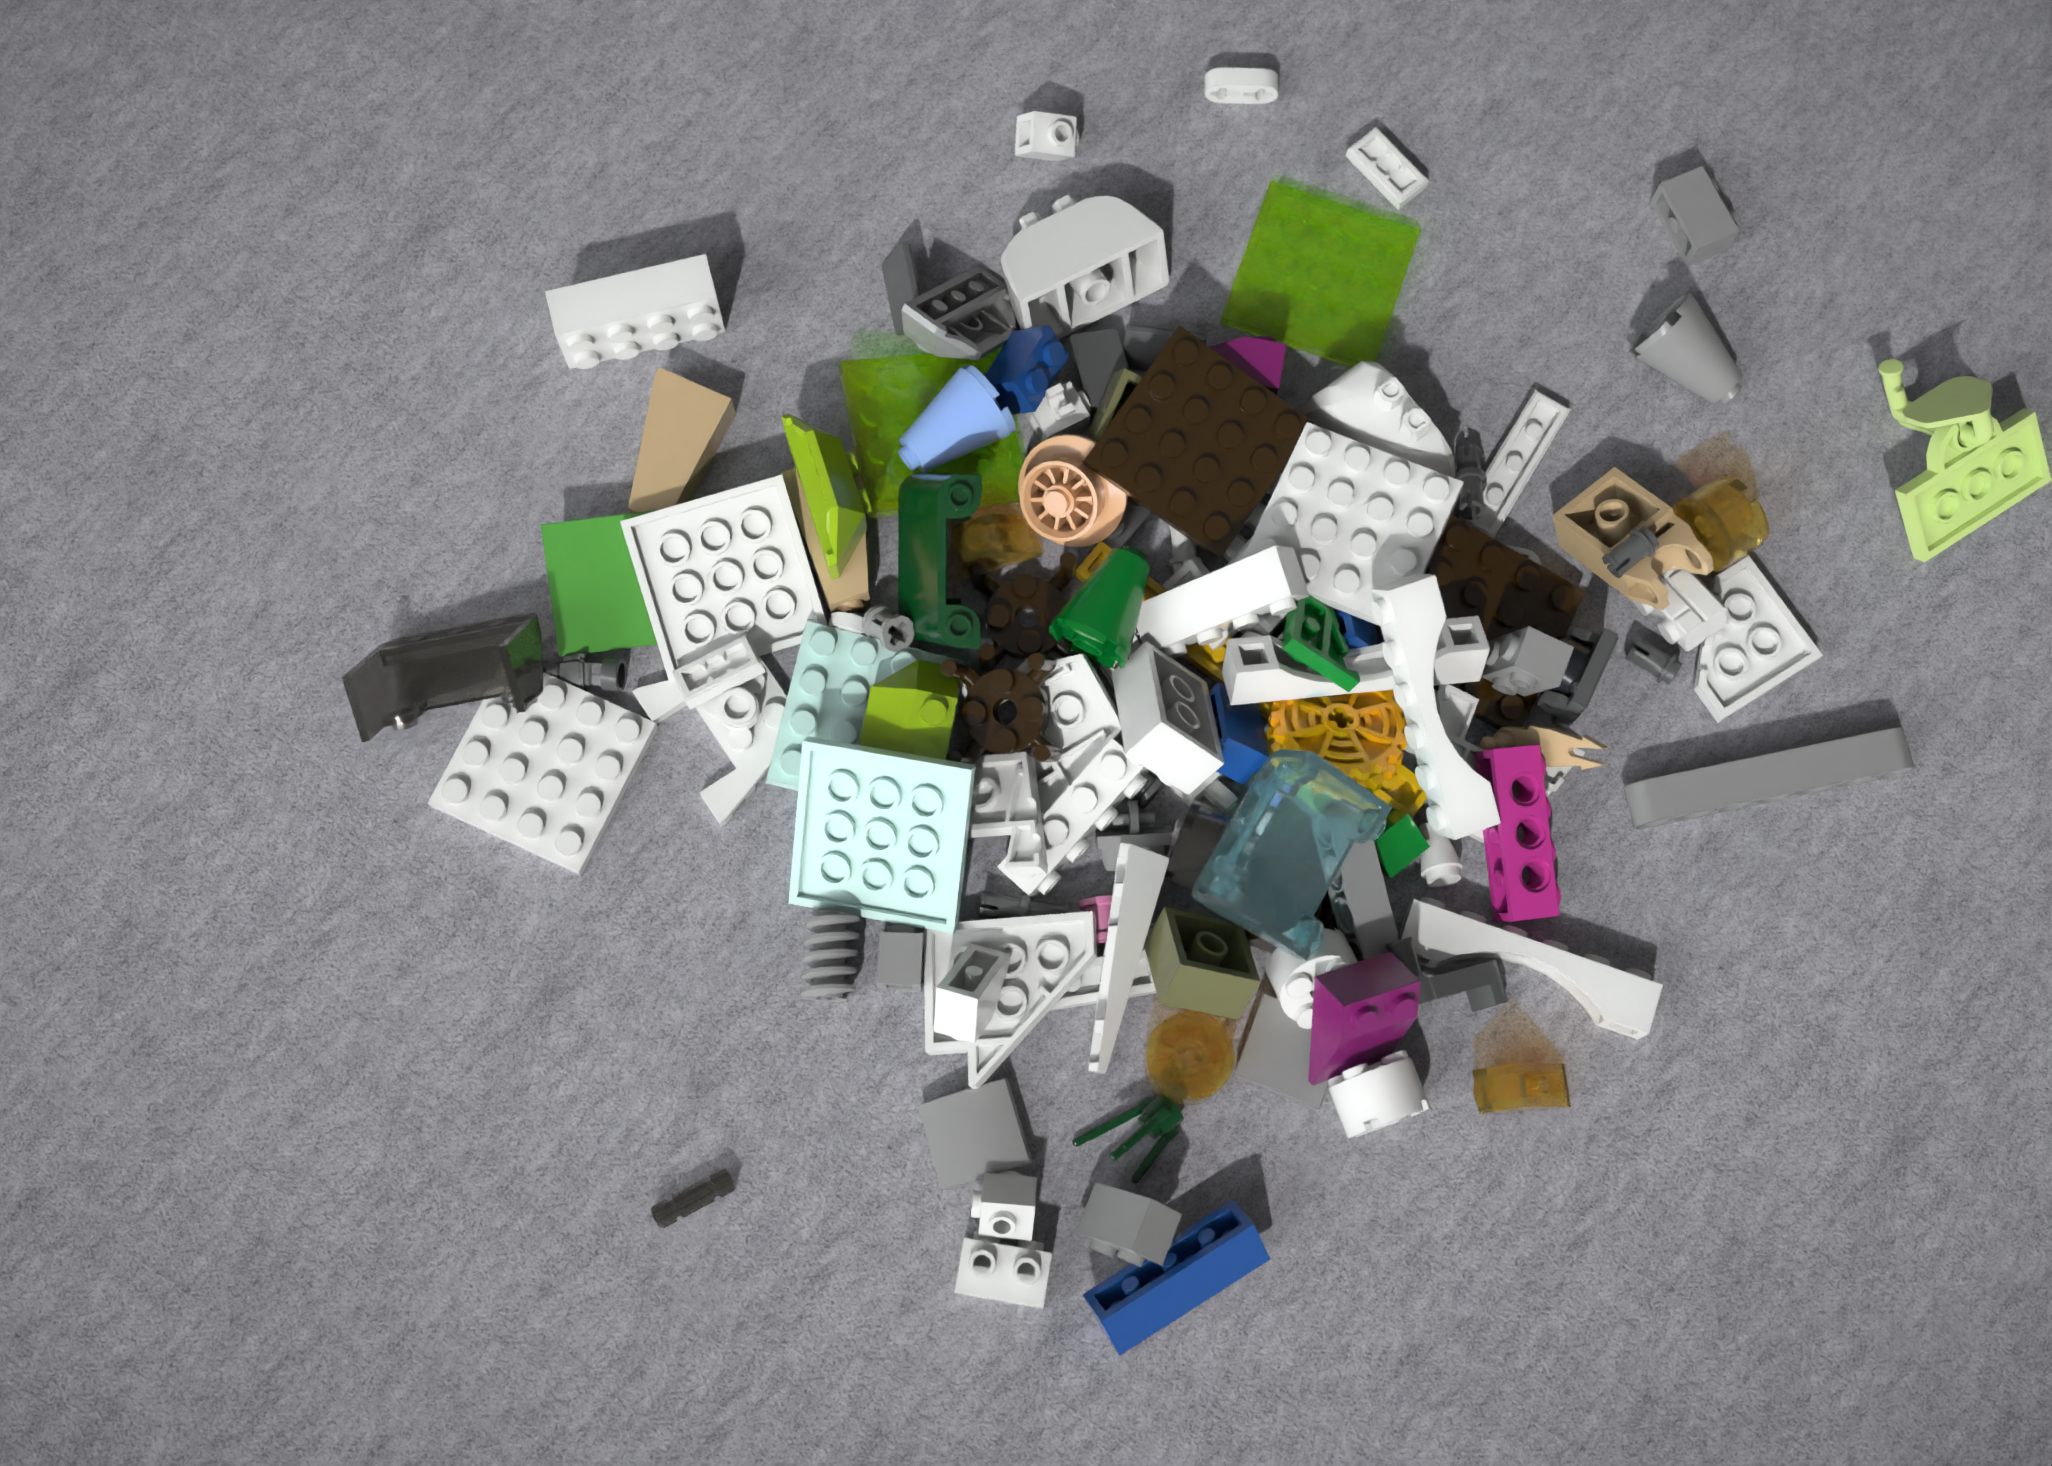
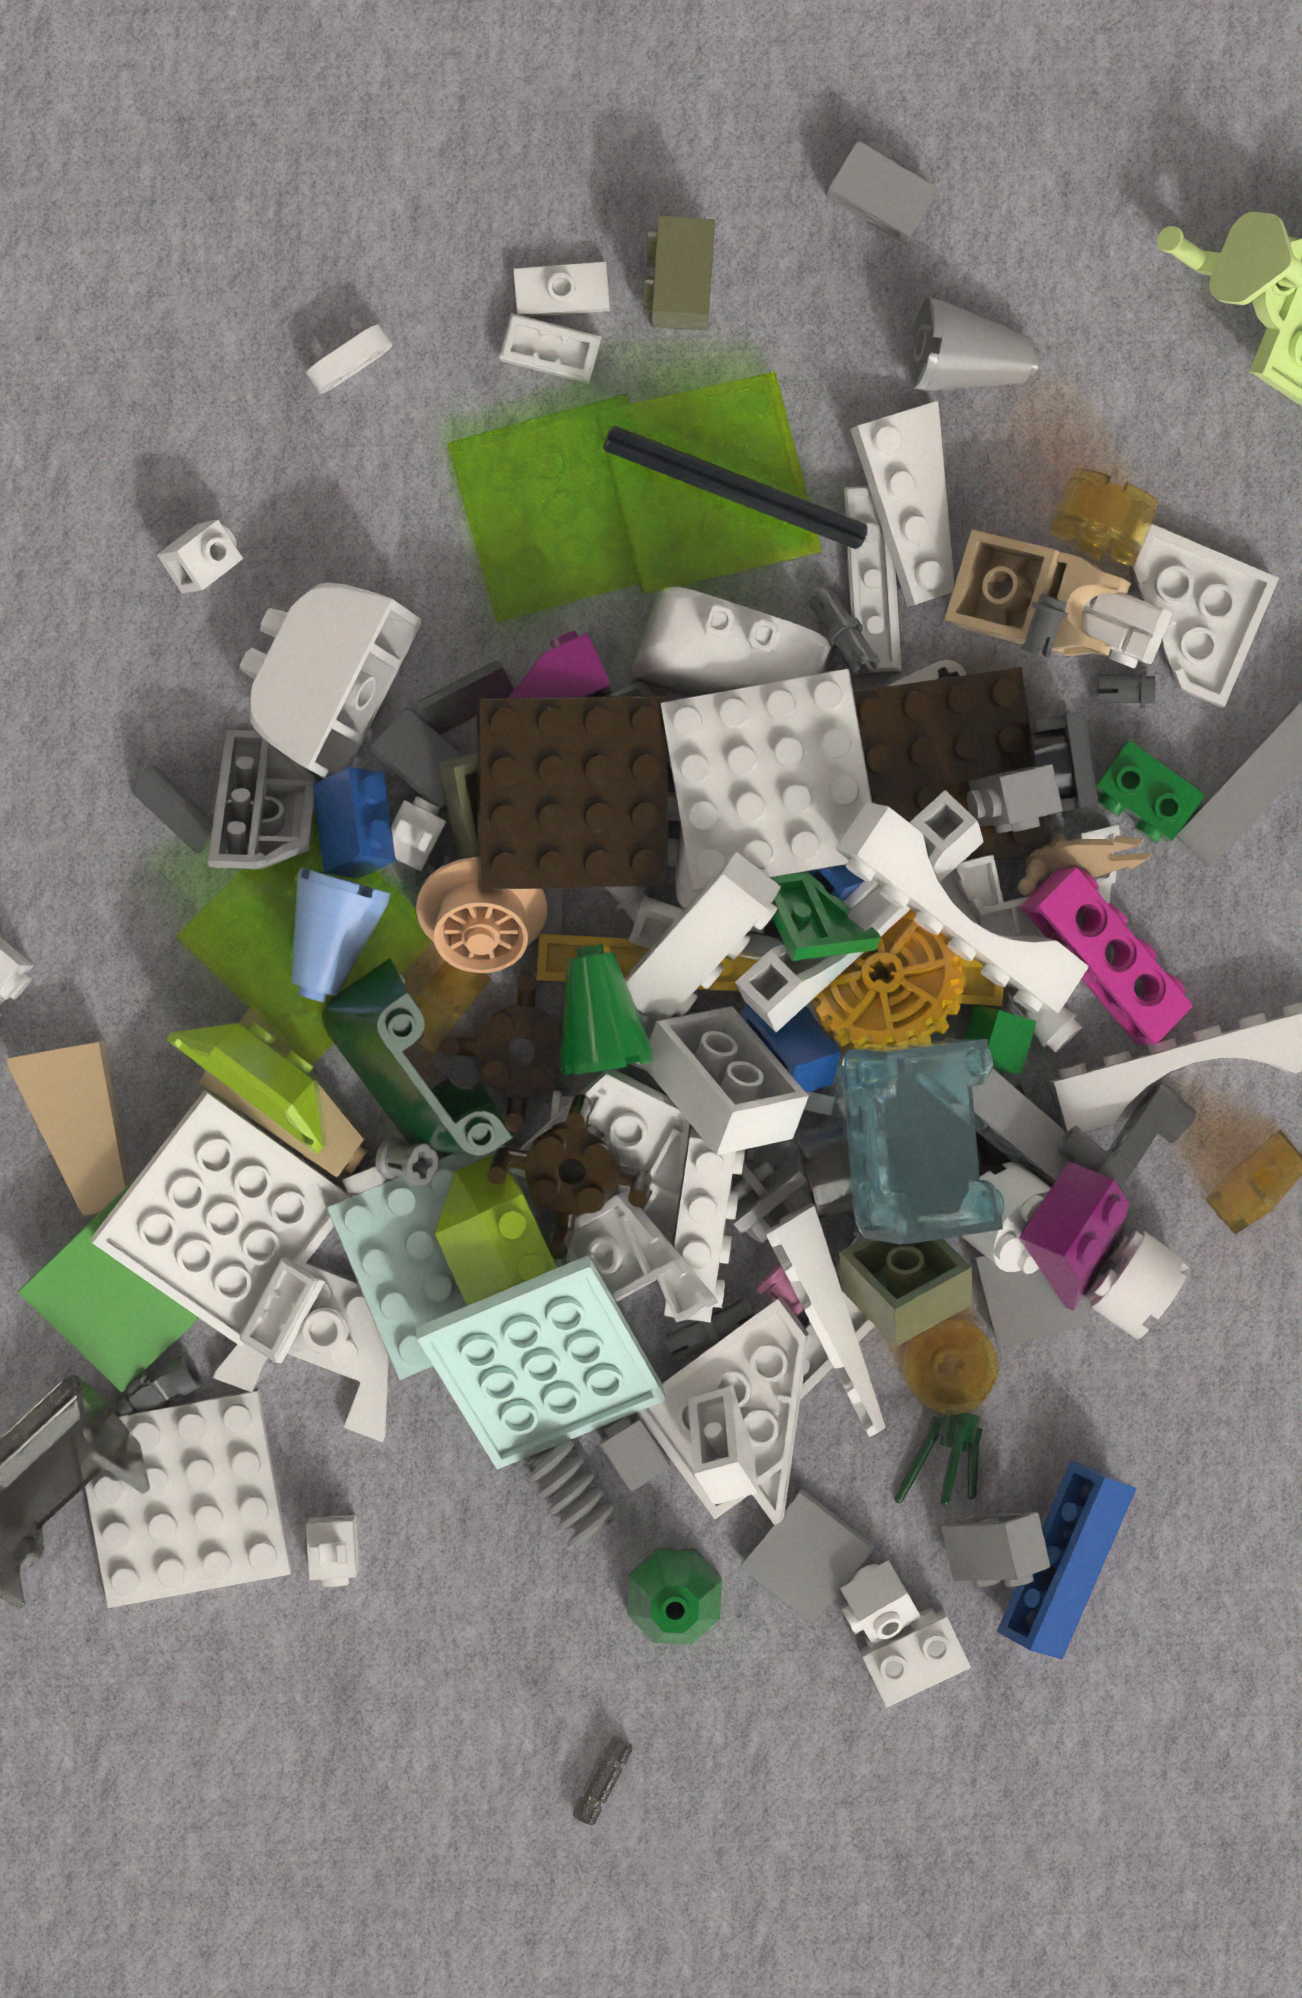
camera: 30 degrees left, 15 degrees up
(623, 874) = (332, 1549): none -> white brick
(853, 1113) = (670, 1577): none -> green cone
(1422, 138) = (561, 289): none -> white plate
(1441, 319) = (686, 533): none -> clear neon green plate
(1459, 330) = (735, 487): none -> black axle
(1516, 170) = (683, 272): none -> olive brick
(1581, 421) = (909, 493): none -> white wing
(1631, 741) = (1147, 793): none -> green brick

